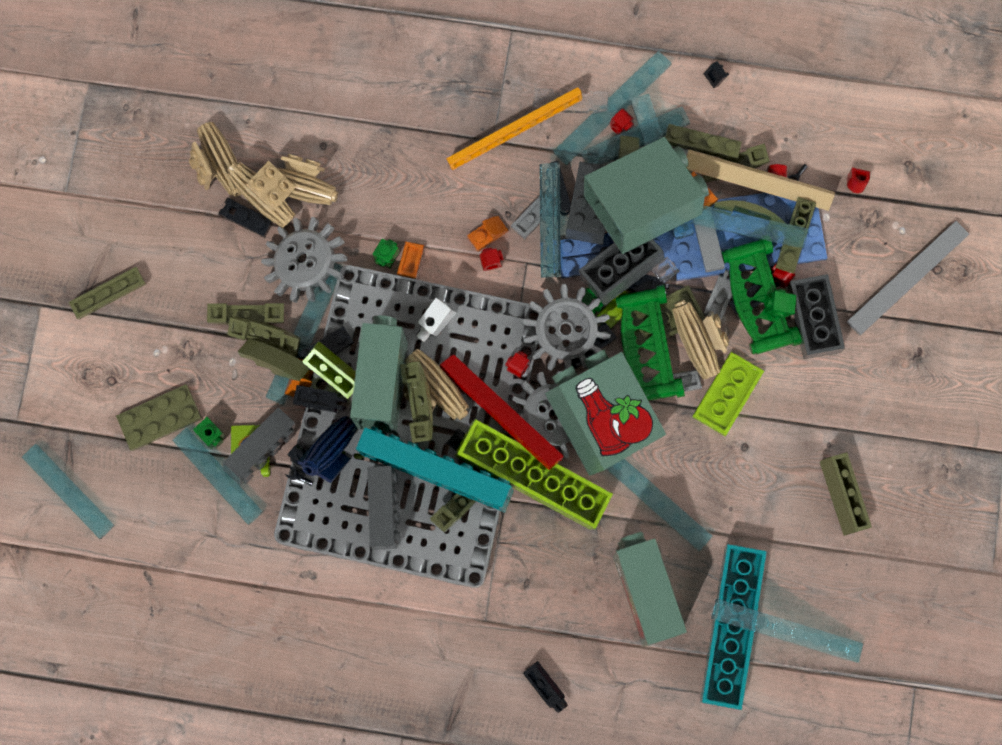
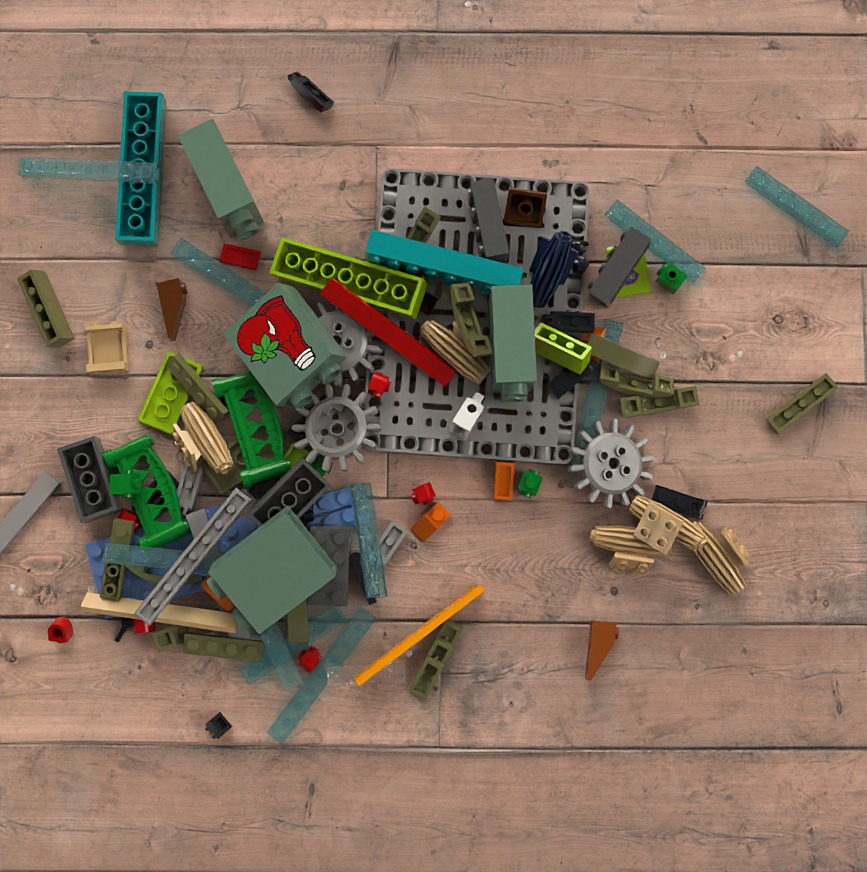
camera: 165 degrees right, 5 degrees up
(159, 417) = (723, 289): olive plate -> none
(343, 520) = (525, 207): none -> reddish brown slope
(345, 97) = (601, 639): none -> dark orange slope
(503, 105) = (436, 659): none -> olive slope
(641, 522) = (240, 256): none -> red tile
(700, 390) = (197, 388): none -> olive plate
(715, 487) = (172, 302): none -> reddish brown slope
(719, 221) = (192, 557): none -> light grey tile
(787, 446) = (107, 348): none -> tan panel

